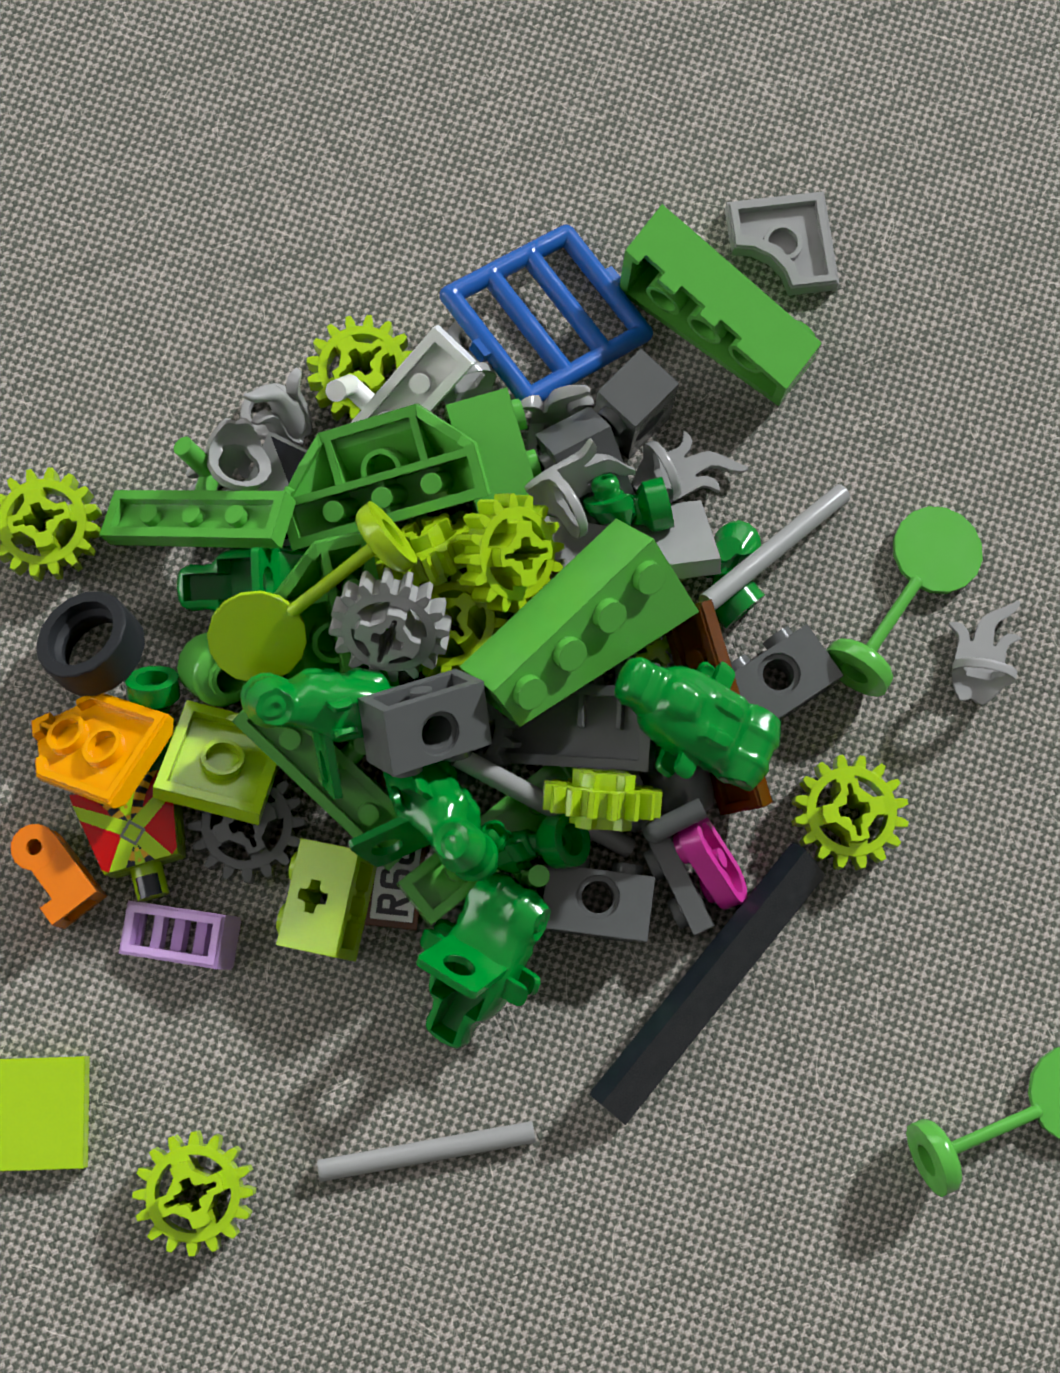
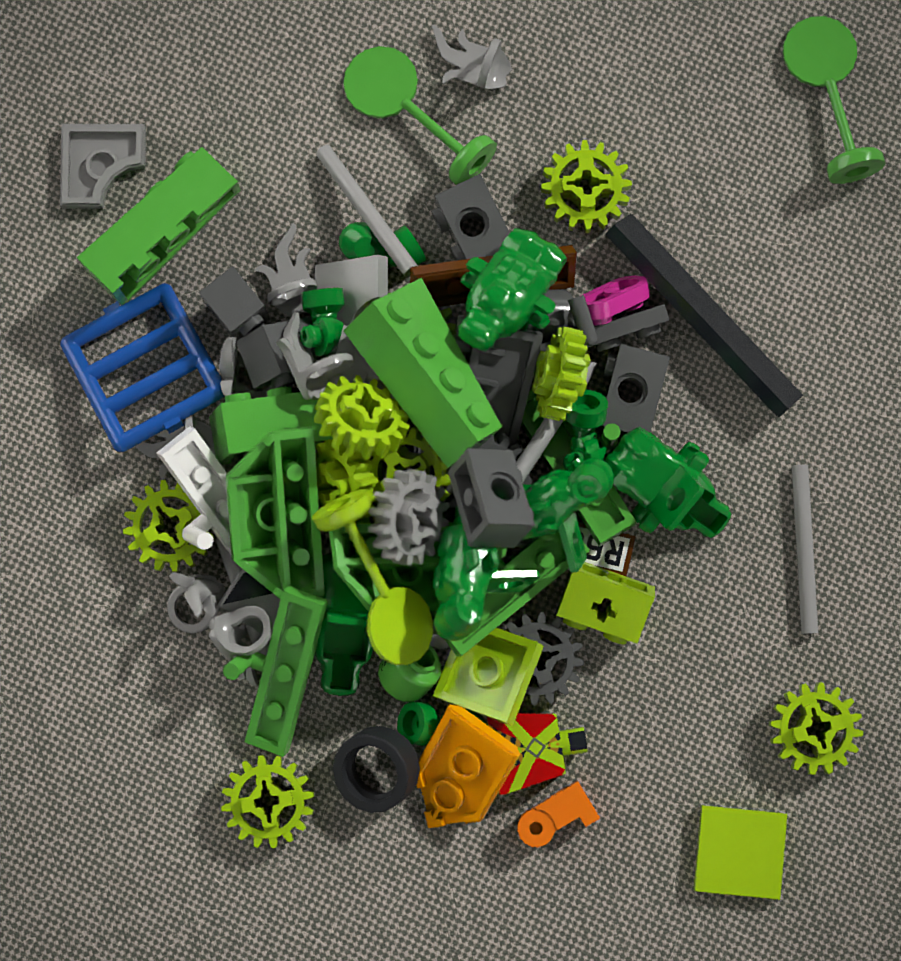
camera: 80 degrees left, 5 degrees up
(213, 941) = (625, 688): lavender slope -> none

